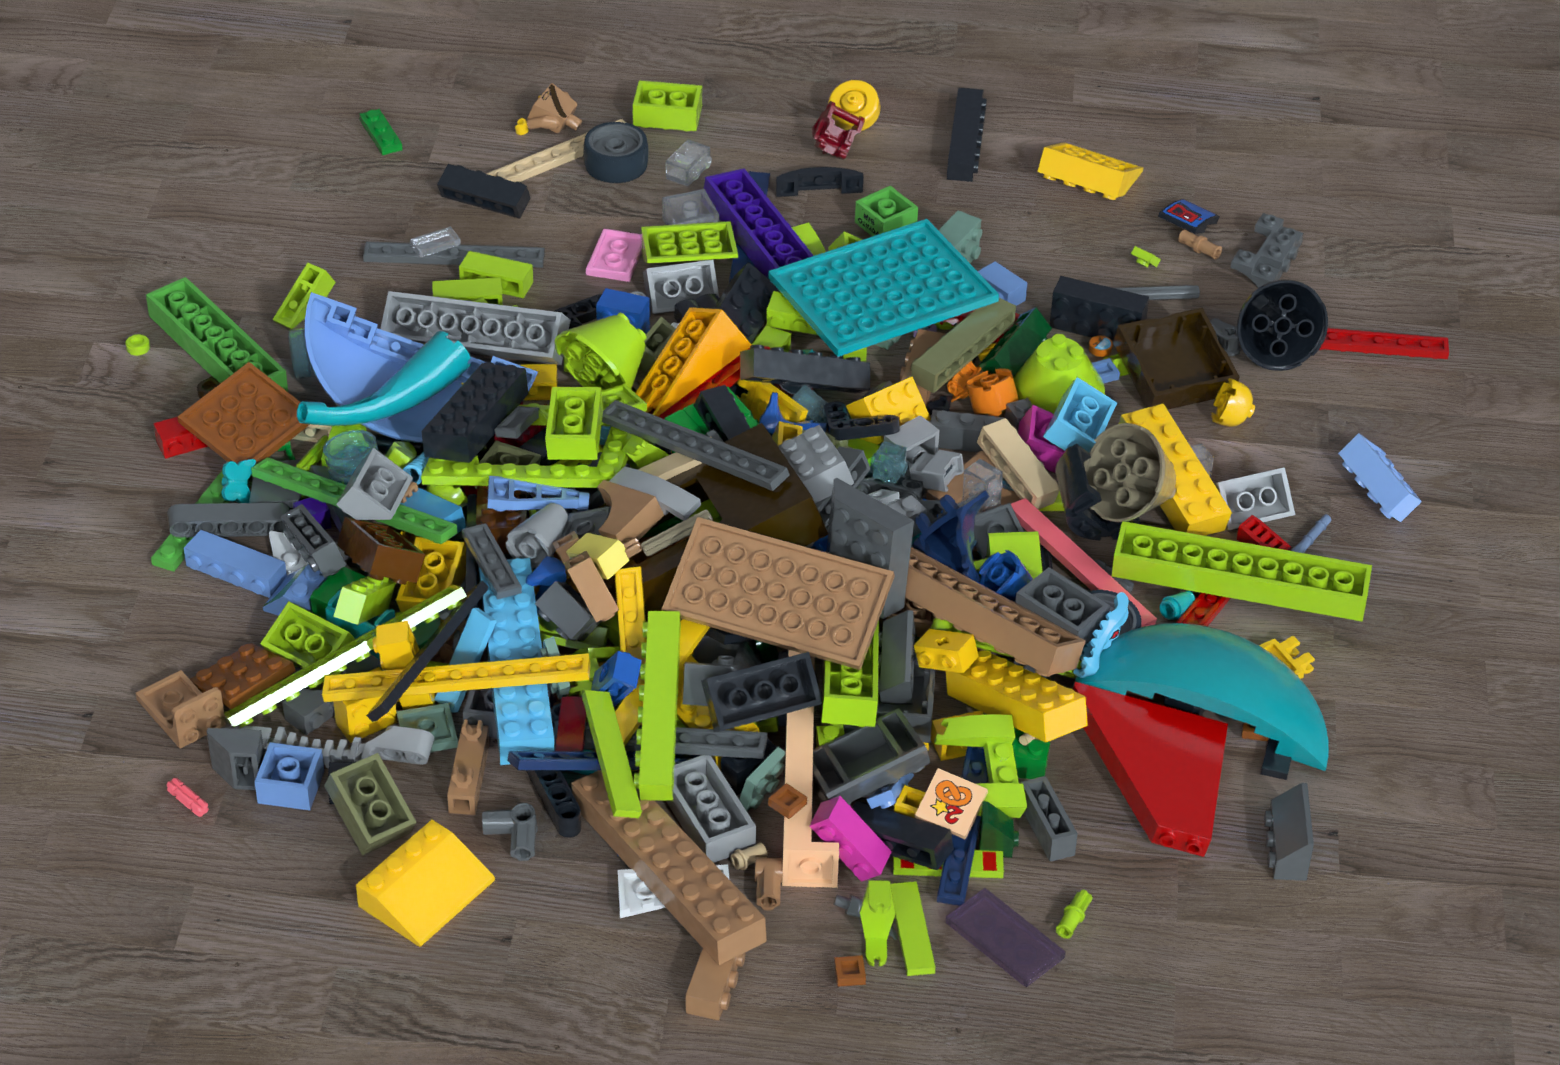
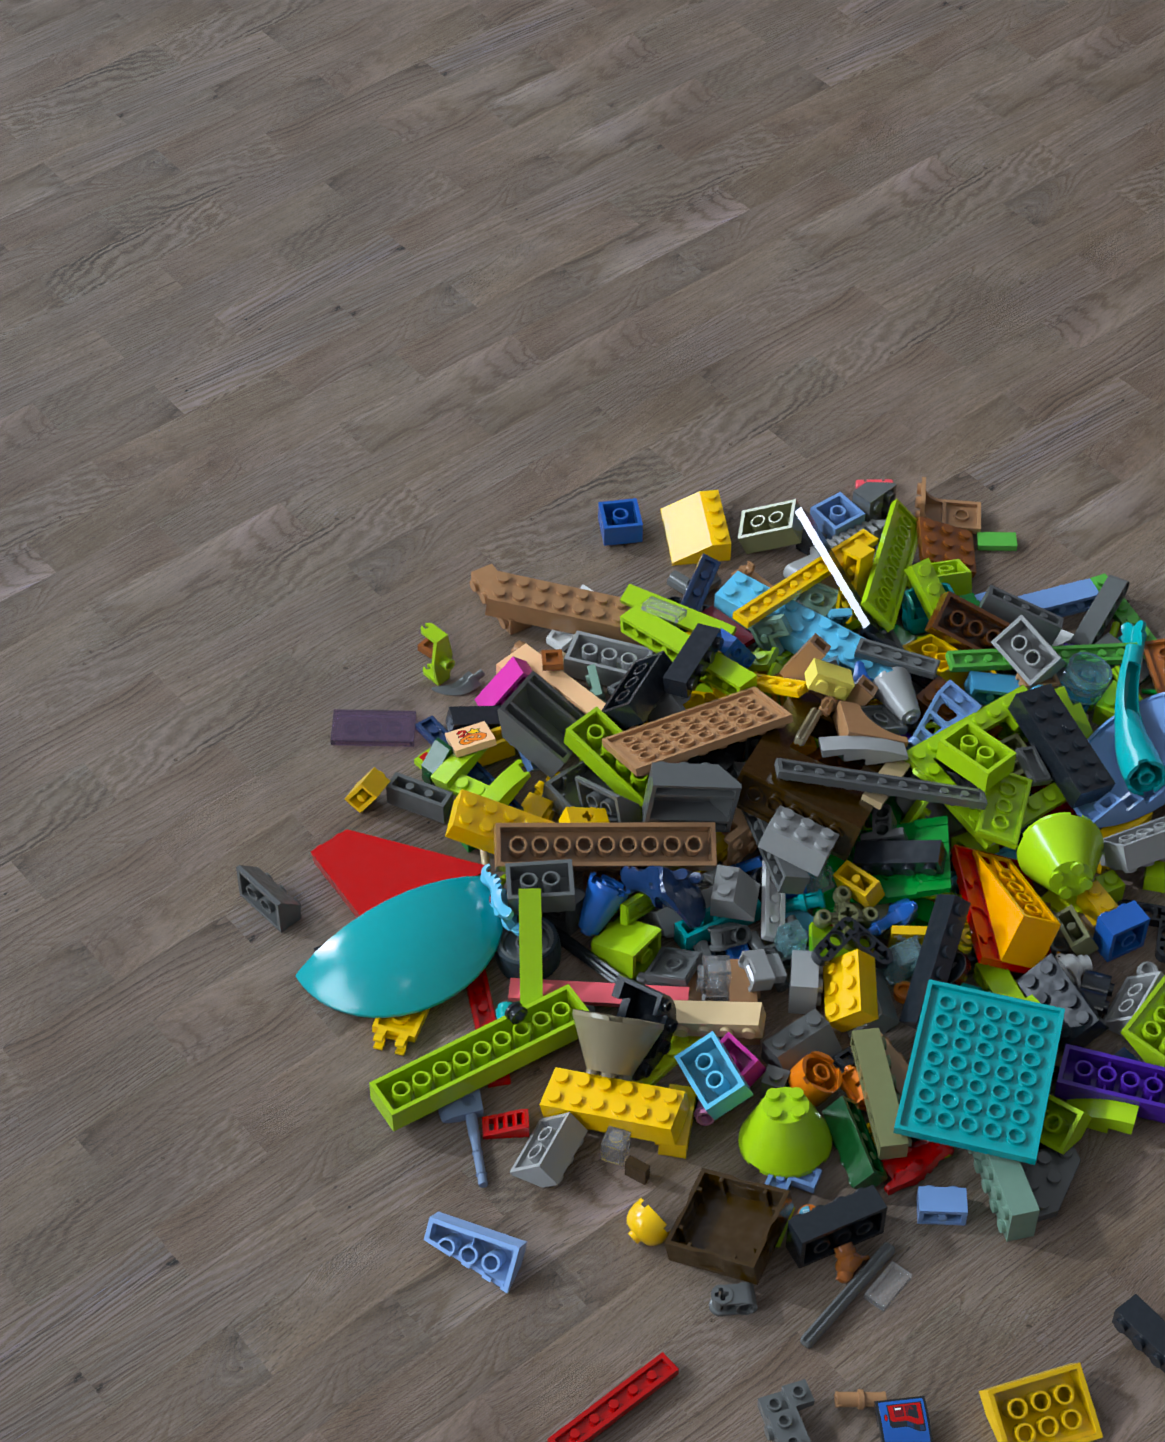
camera: 135 degrees right, 5 degrees up
(180, 657) = (996, 541): none -> bright green tile
(491, 942) = (620, 522): none -> blue brick
(626, 752) = (664, 609): none -> clear tile
(688, 658) = (693, 660): none -> black brick
(884, 211) = (1104, 1196): bright green brick -> none
(912, 929) = (424, 692): lime tile -> none
(1074, 914) = (349, 765): lime axle -> none
(1094, 852) = (367, 789): none -> yellow brick
(1108, 279) = (887, 1286): none -> clear tile
(1110, 588) = (530, 945): none -> lime tile
(1145, 258) = (881, 1340): lime plate -> none
(1190, 558) = (516, 1012): none -> black bush
(1196, 436) = (637, 1170): none -> dark brown tile
(1282, 324) = (696, 1322): black cone -> none

